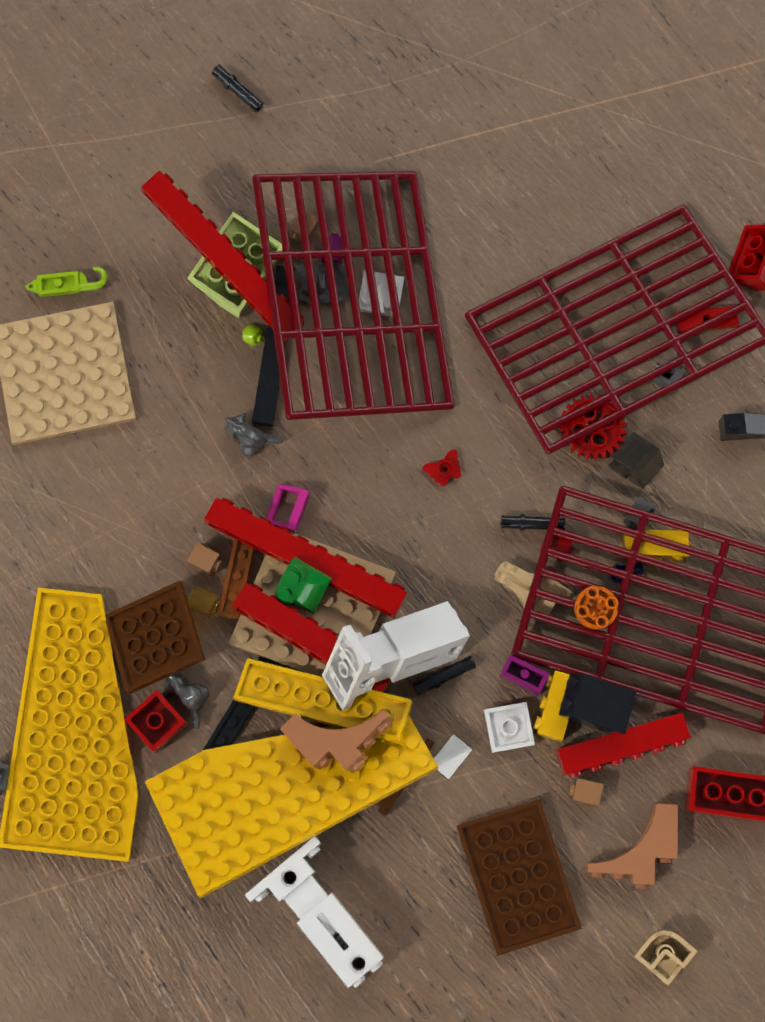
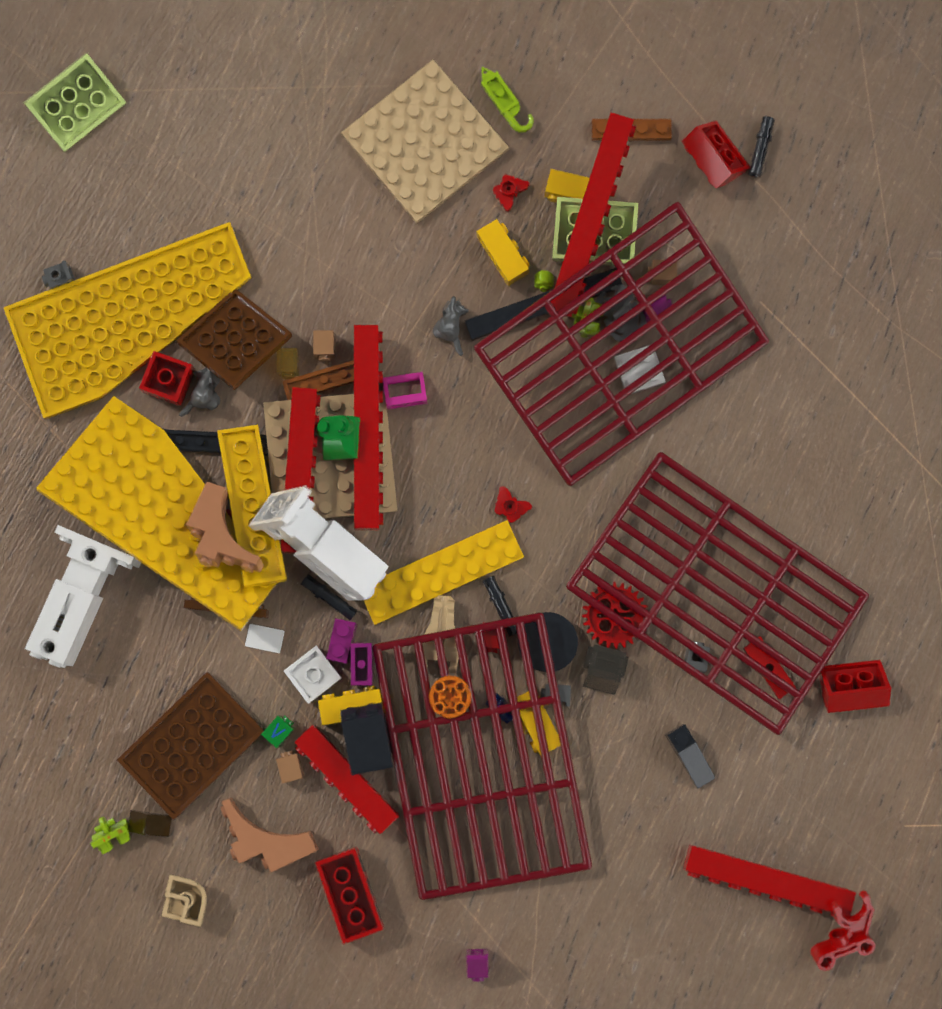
camera: 65 degrees right, 5 degrees up
(144, 210) = (645, 131): none -> dark orange plate
(158, 327) = (507, 197): none -> red animal
(178, 268) = (565, 185): none -> yellow brick
(207, 355) = (503, 252): none -> yellow brick
(222, 129) = (715, 154): none -> red slope
(304, 305) = (593, 328): none -> lime hips
(474, 557) = (443, 572): none -> yellow plate
(492, 683) = (341, 639): none -> magenta brick
(546, 785) = (279, 730): none -> green brick
(562, 998) = (108, 830): none -> lime hips
(572, 955) = (149, 823): none -> dark brown slope
(591, 482) = (562, 642): none -> black piece

